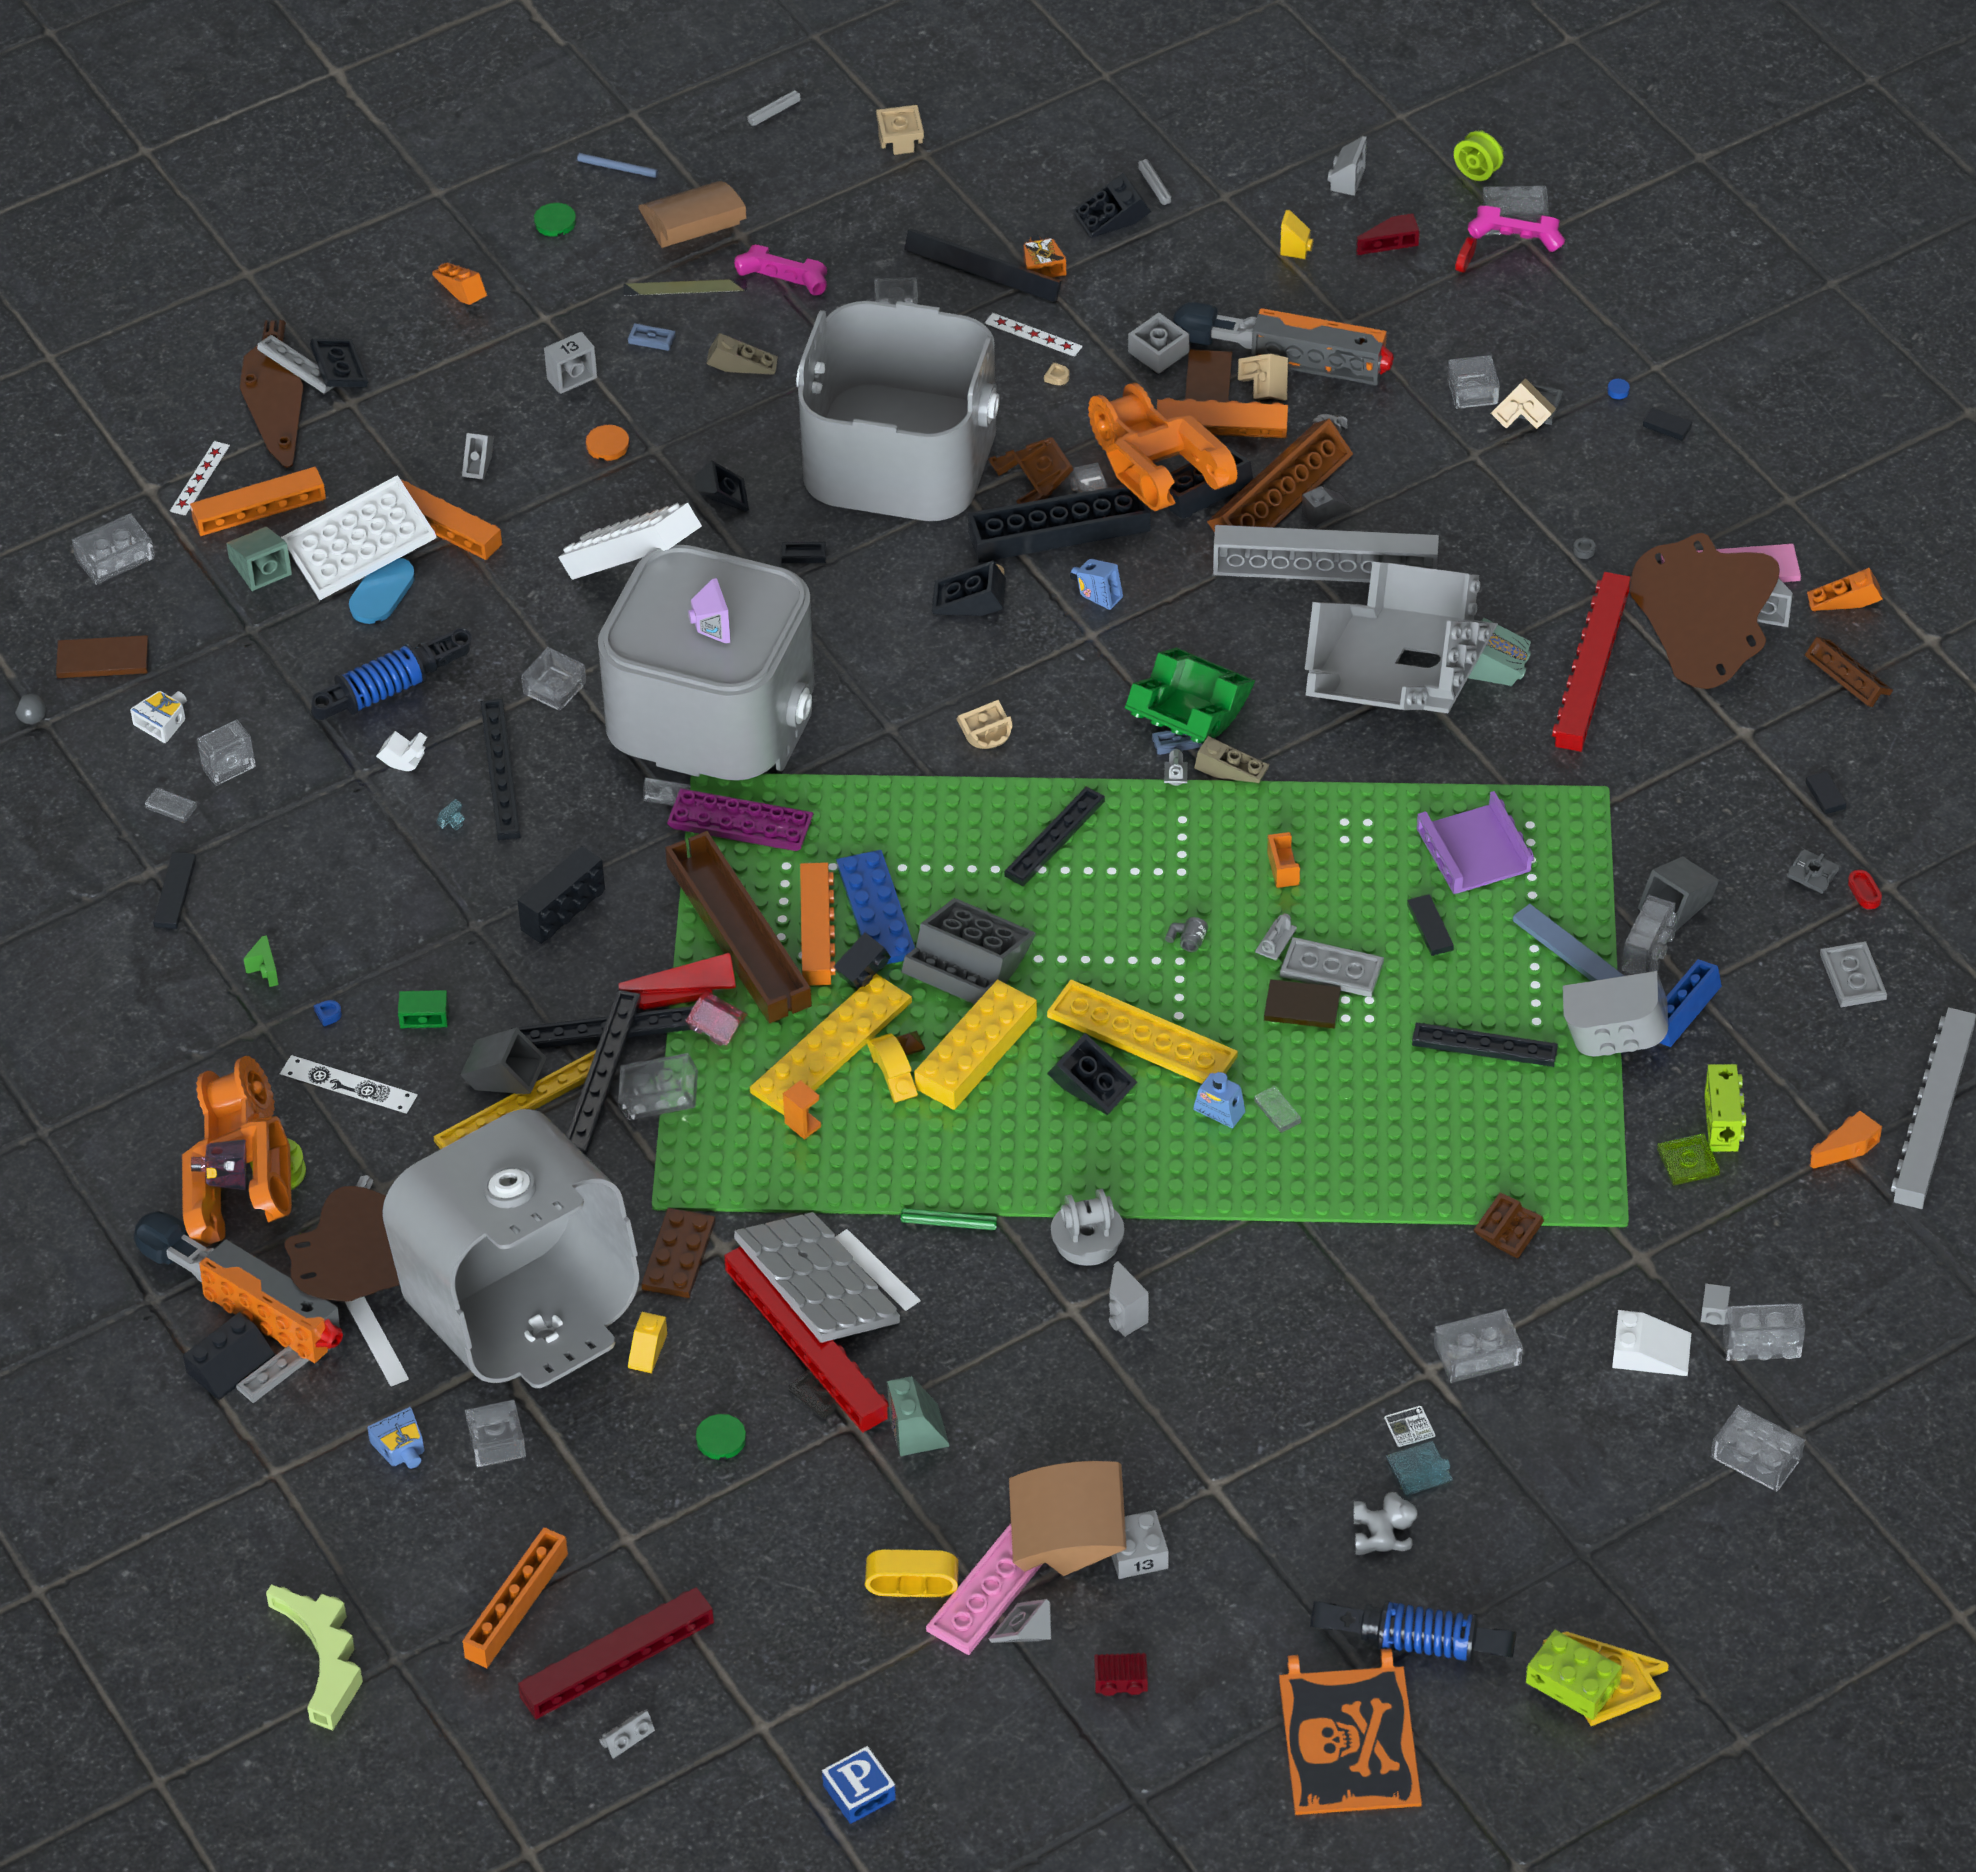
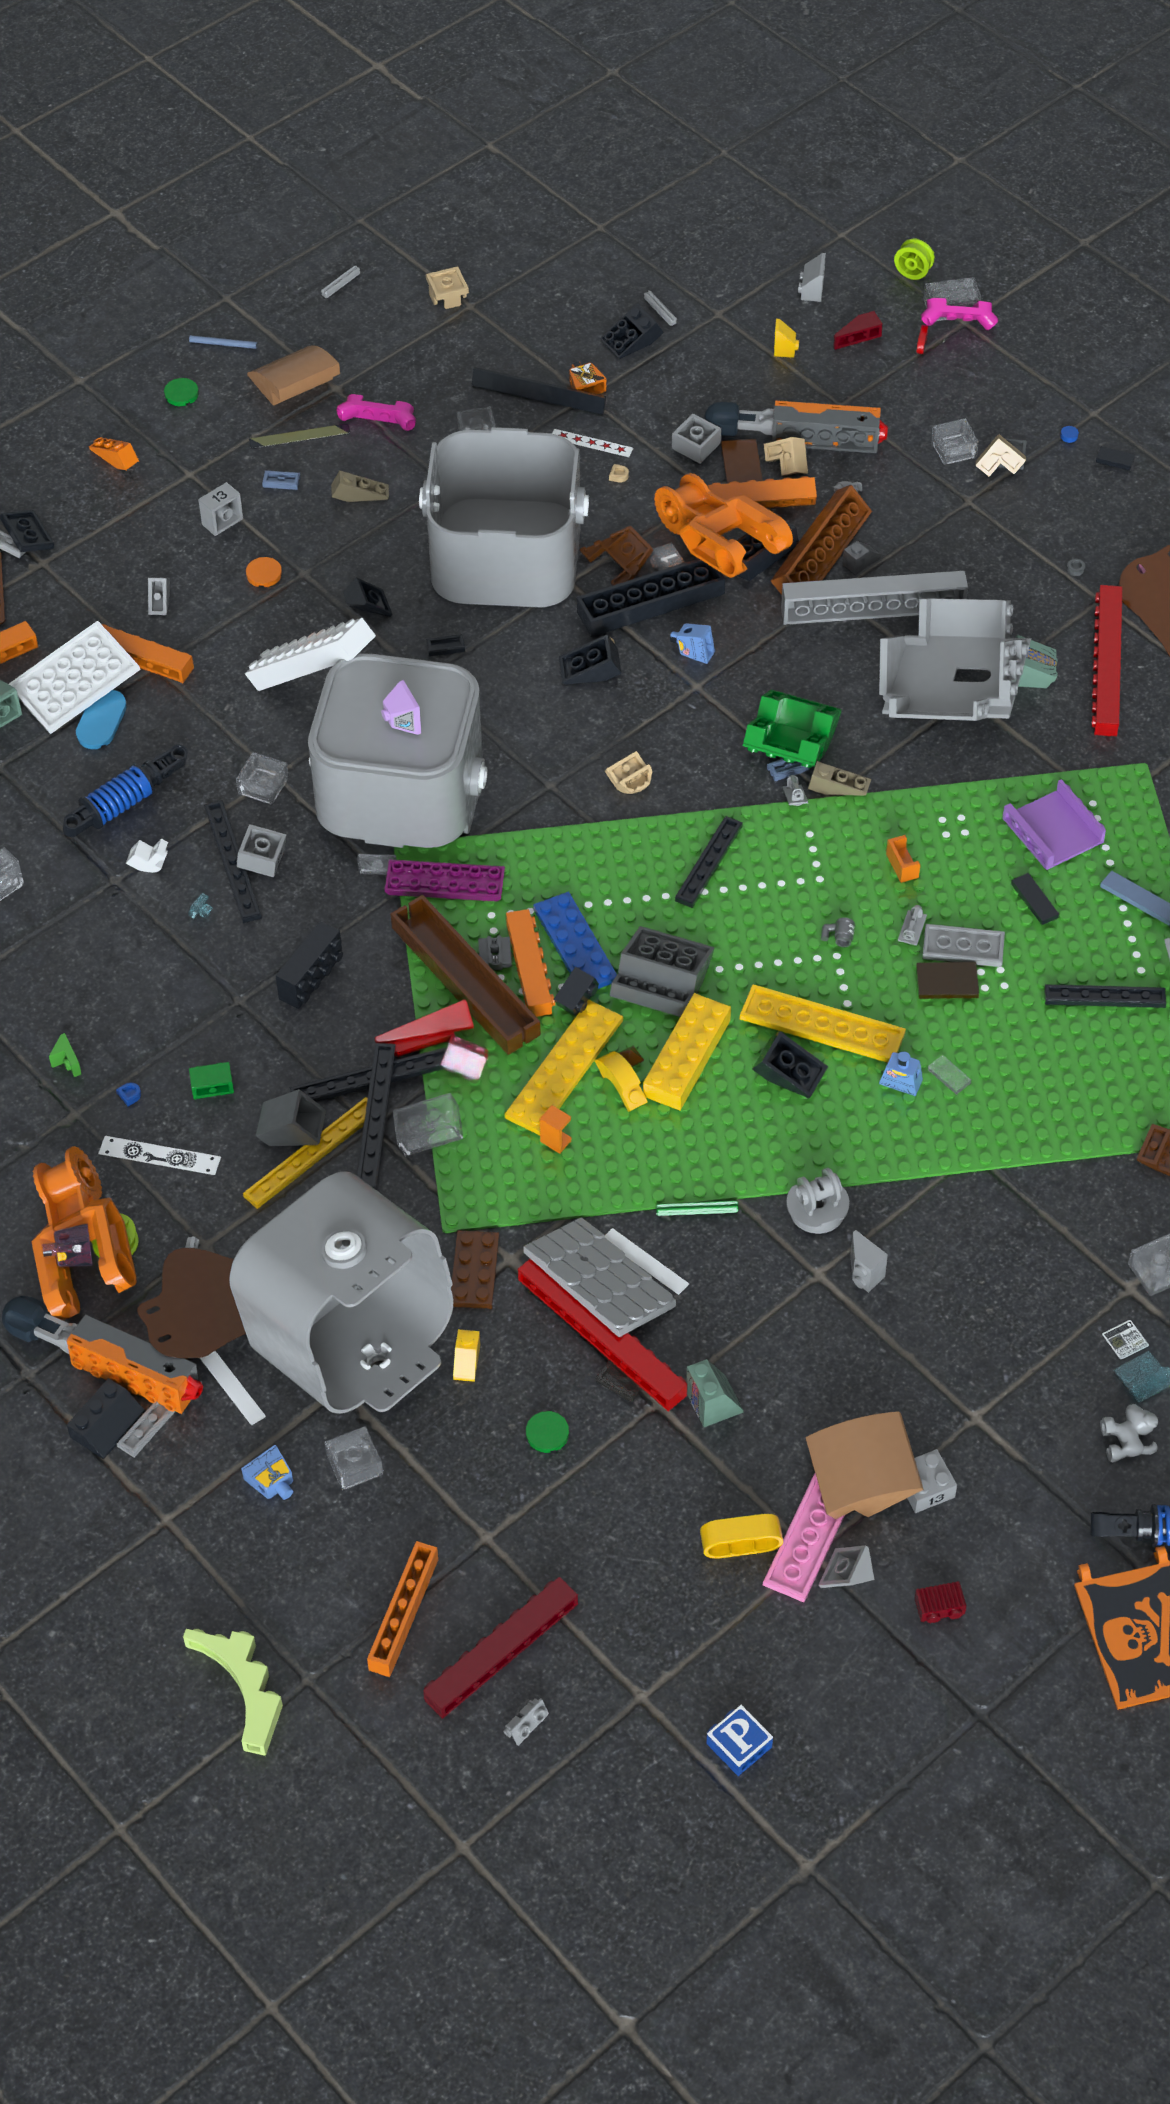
camera: 10 degrees left, 5 degrees up
(534, 760) = (261, 850): none -> light grey brick
(784, 900) = (495, 945): none -> dark grey piece

